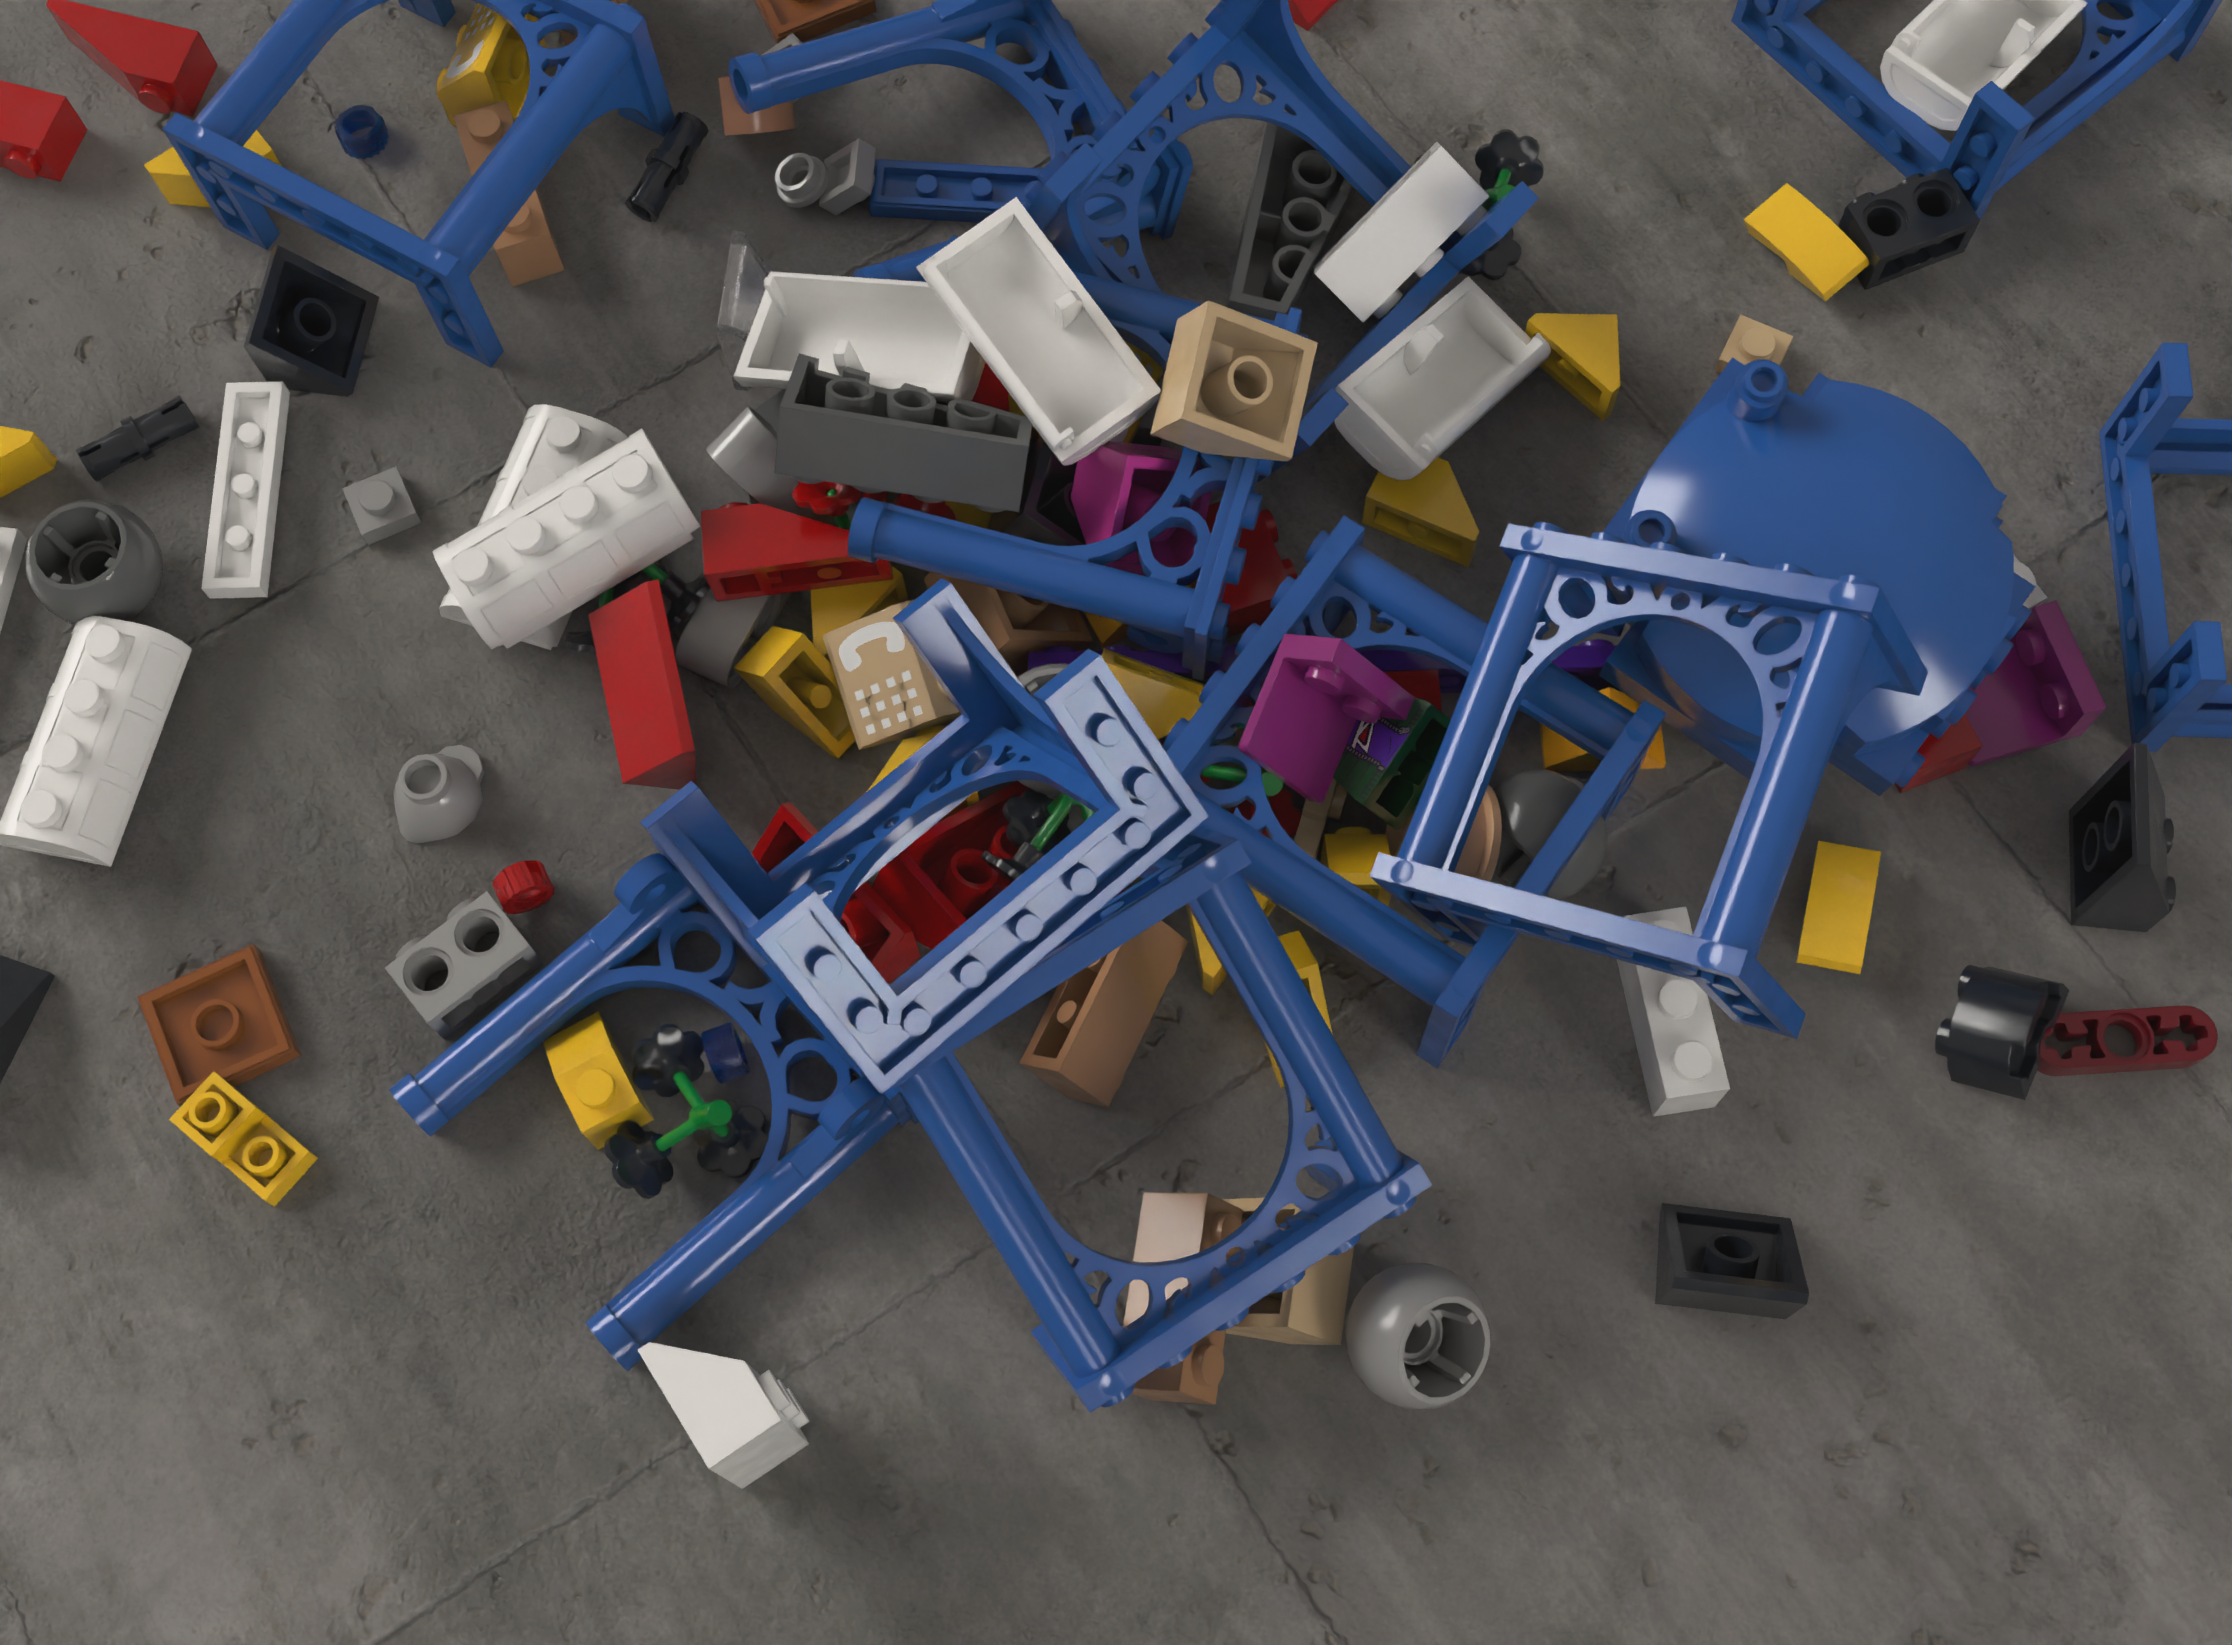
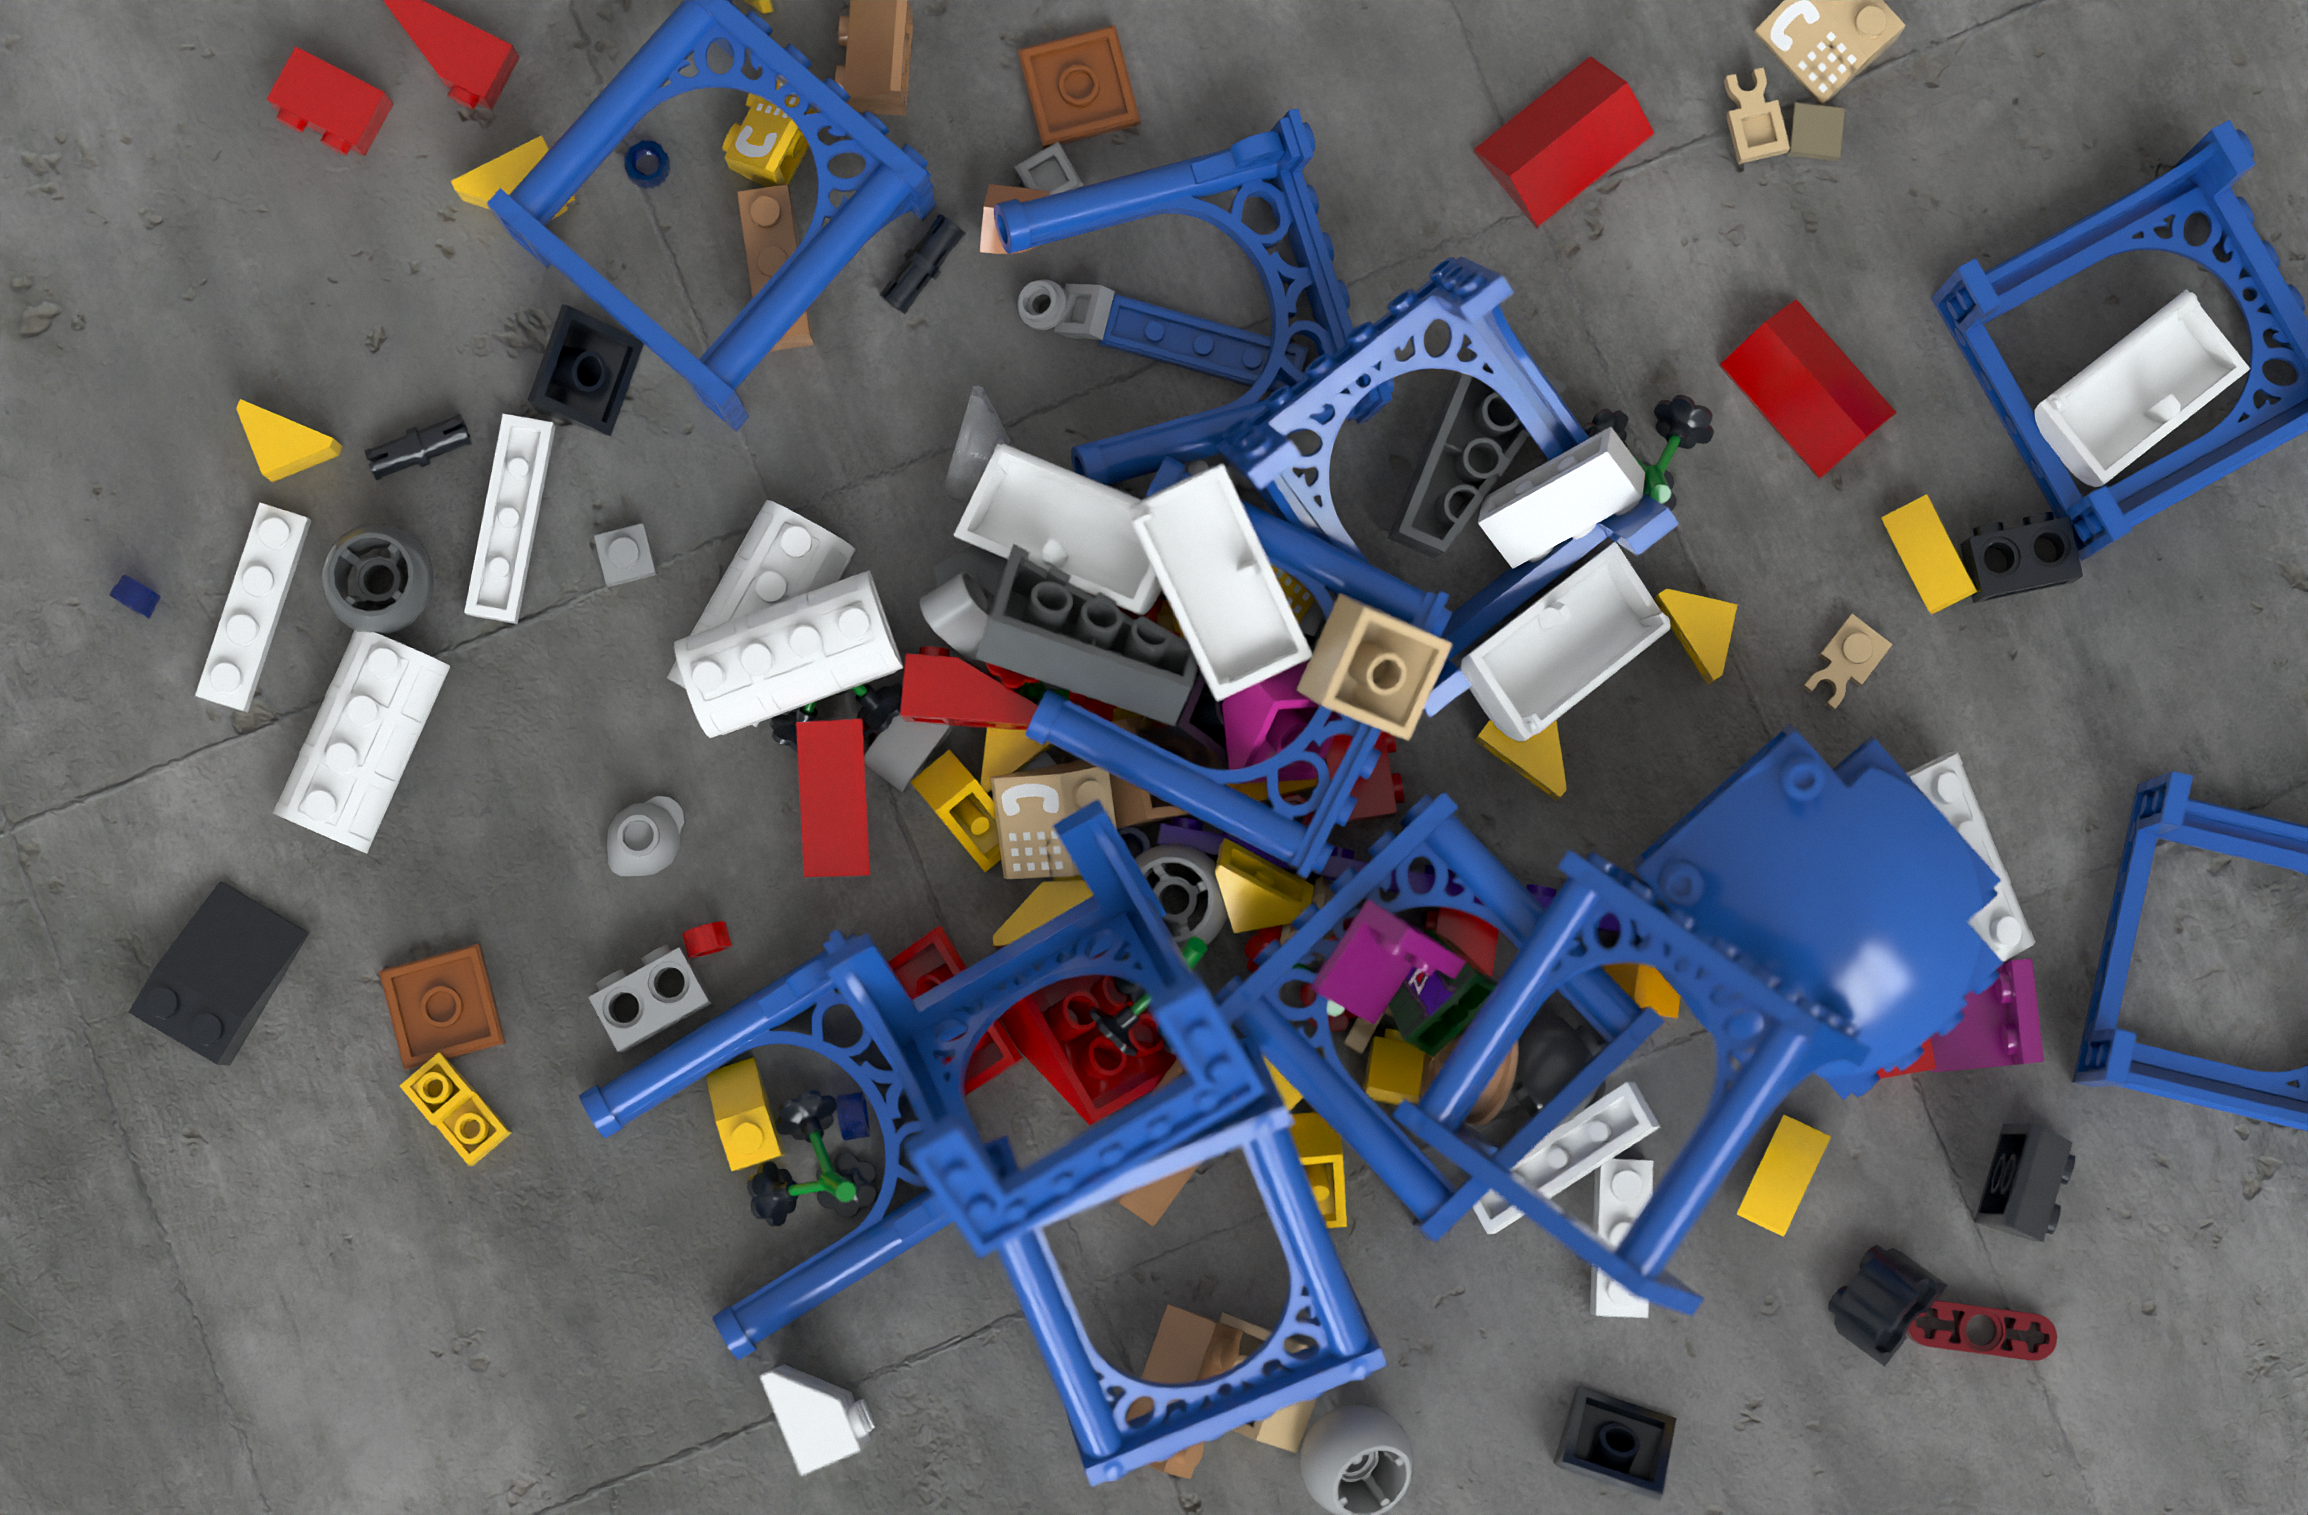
camera: 10 degrees right, 15 degrees up
(1612, 882) = (1575, 1150): none -> white plate
(1626, 119) = (1807, 388): none -> red slope

